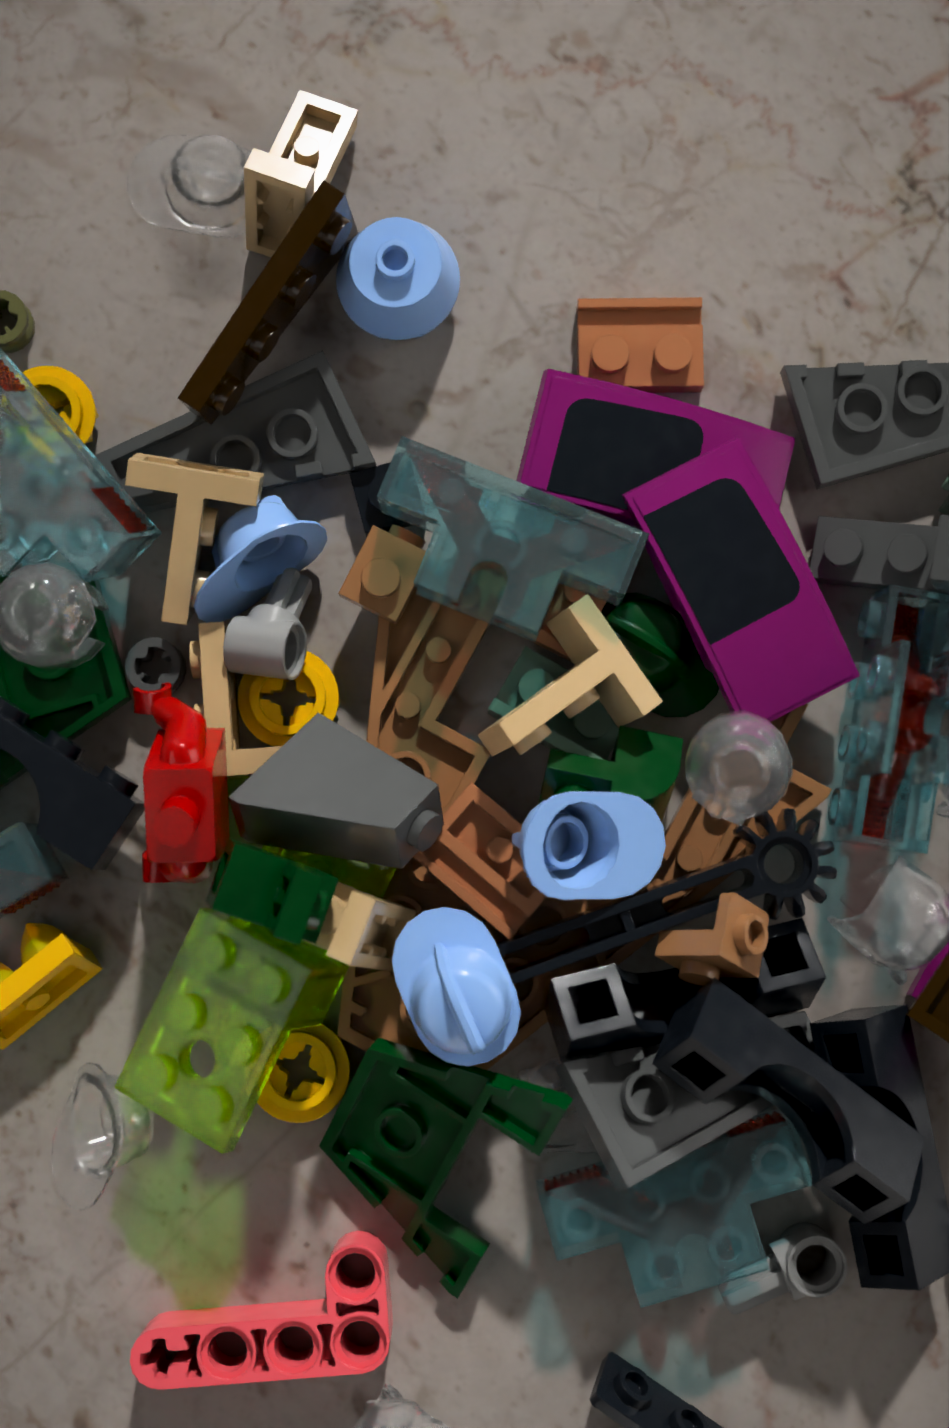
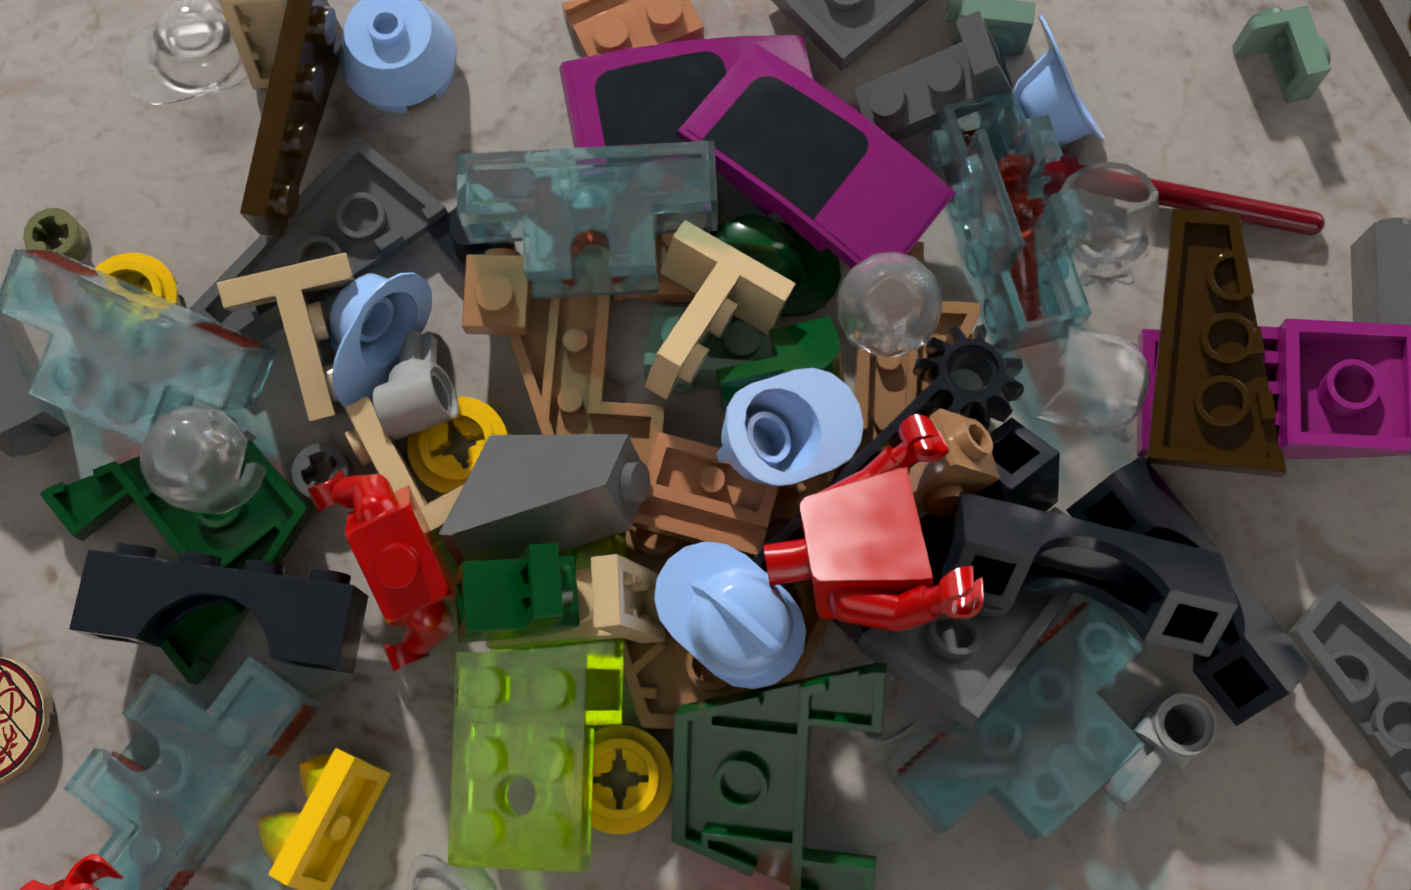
camera: 25 degrees left, 10 degrees down
(603, 995) = (869, 547): none -> torso

